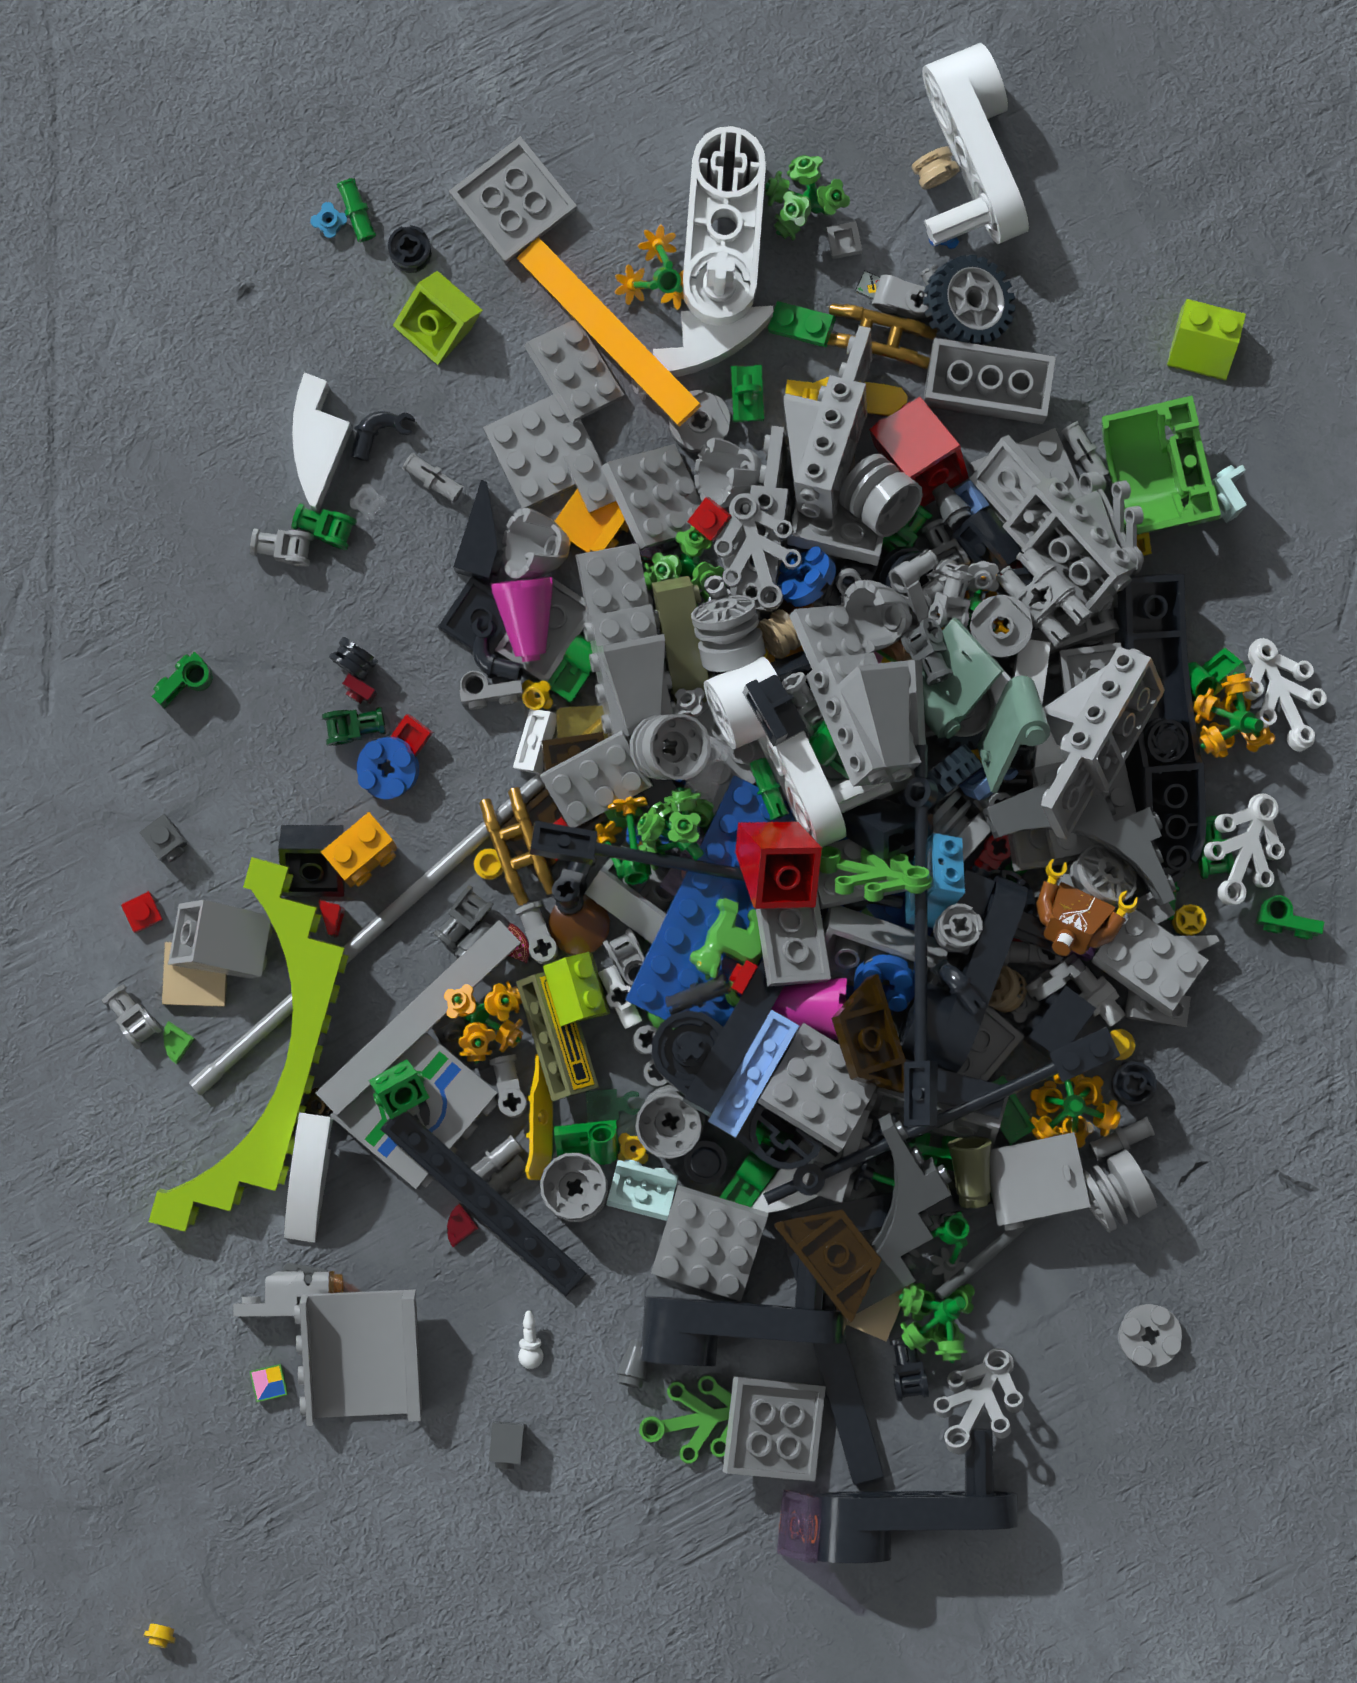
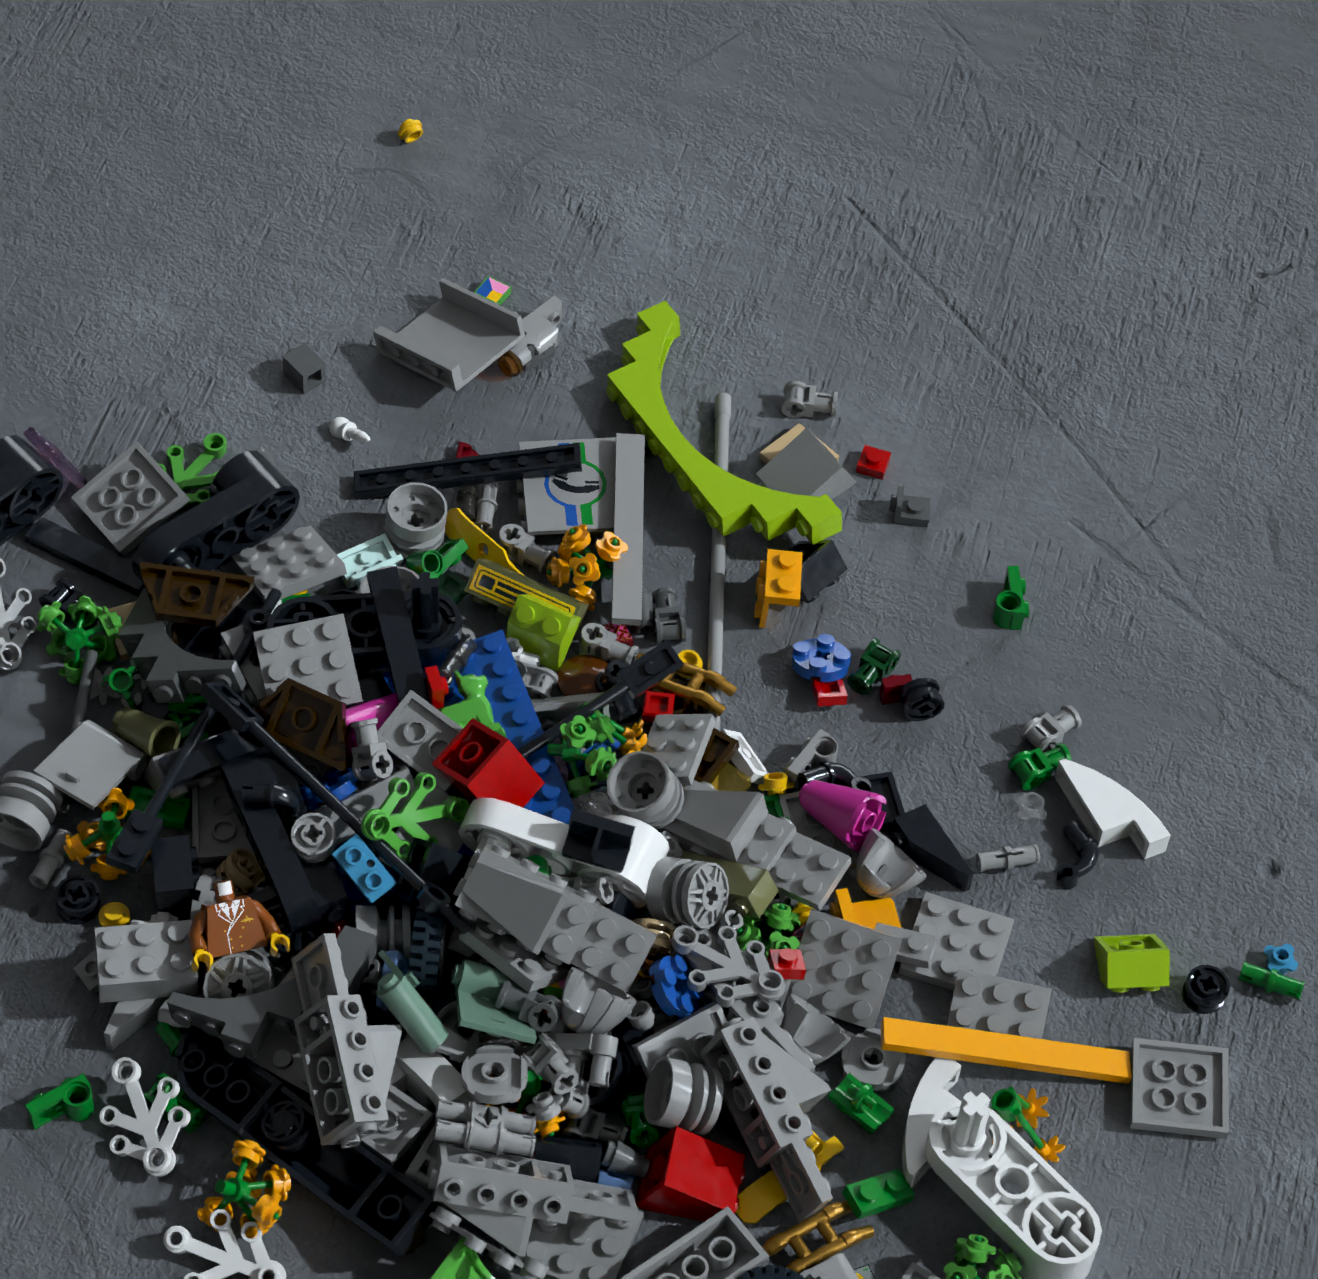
camera: 135 degrees right, 30 degrees down
(176, 1042) = (765, 415): bright green tile -> none
(307, 1177) = (597, 401): white slope -> none
(332, 916) = (752, 548): red slope -> none
(399, 1089) = (593, 469): green head -> none
(753, 1073) = (364, 632): light blue plate -> none
(846, 968) = (369, 752): none -> light grey connector
(1193, 916) = (136, 1033): yellow wheel -> none
(1213, 673) = (295, 1221): green plate -> none

